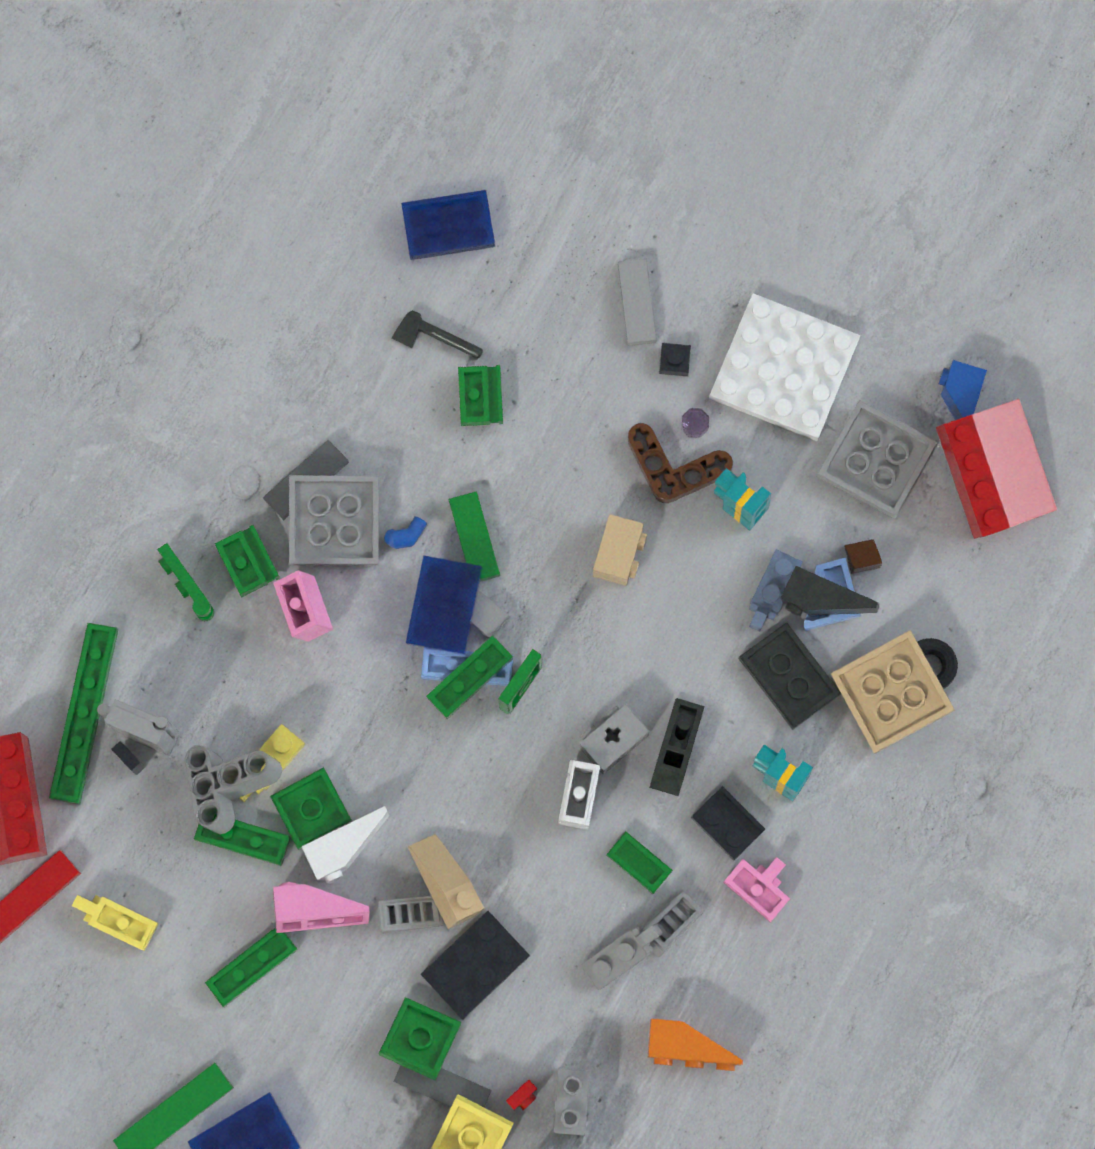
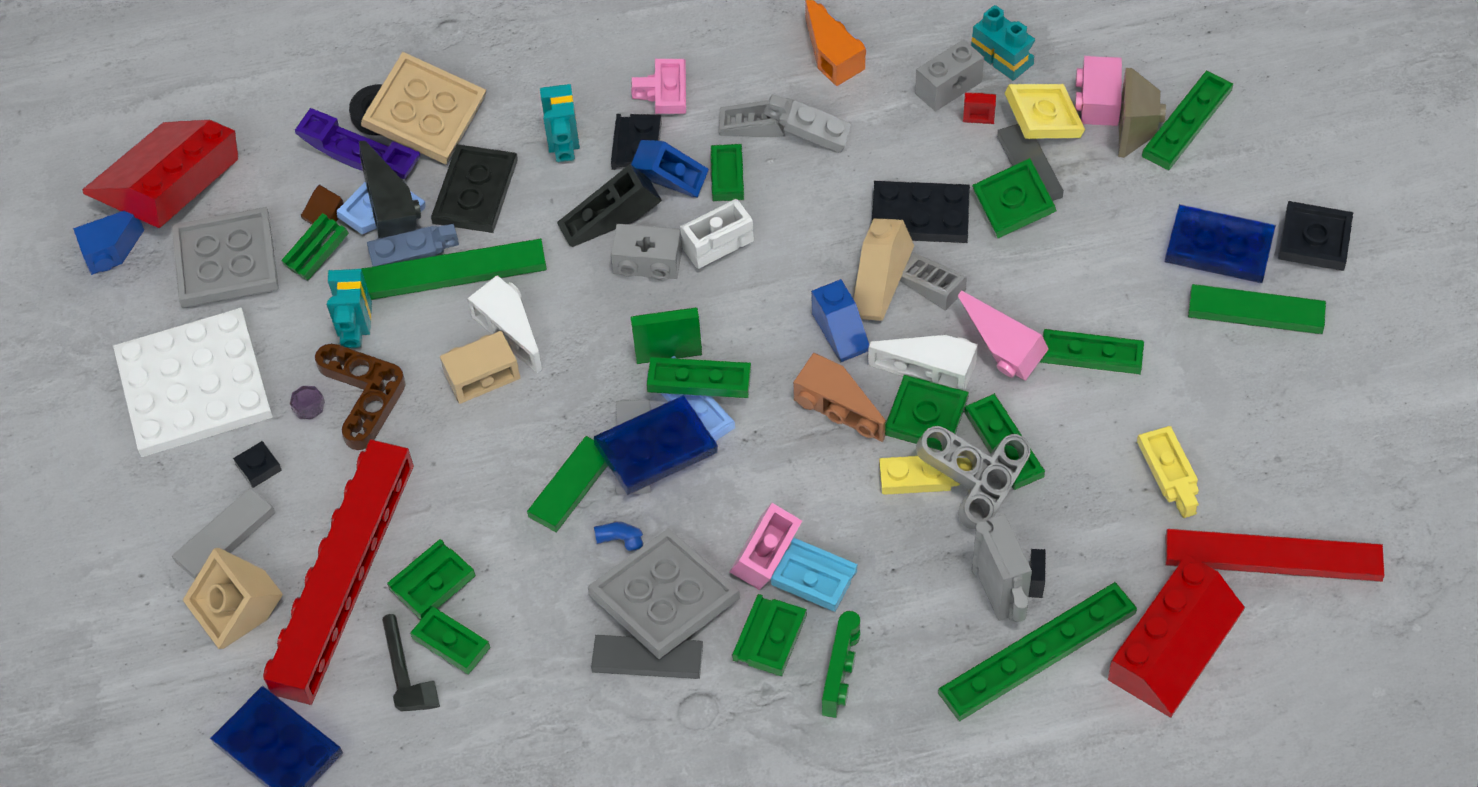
camera: 130 degrees left, 20 degrees down
(259, 625) = (814, 574): none -> medium azure plate
(378, 758) = (833, 392): none -> nougat slope
(426, 373) = (450, 640): none -> green plate
(431, 815) = (839, 320): none -> blue slope
(539, 348) = (338, 573): none -> red brick
(576, 269) = (231, 597): none -> tan slope
(646, 600) = (500, 308): none -> white slope
(671, 813) = (669, 167): none -> blue slope
(727, 599) = (455, 269): none -> green tile
(825, 502) = (311, 245): none -> green tile
(912, 616) = (343, 145): none -> dark purple slope

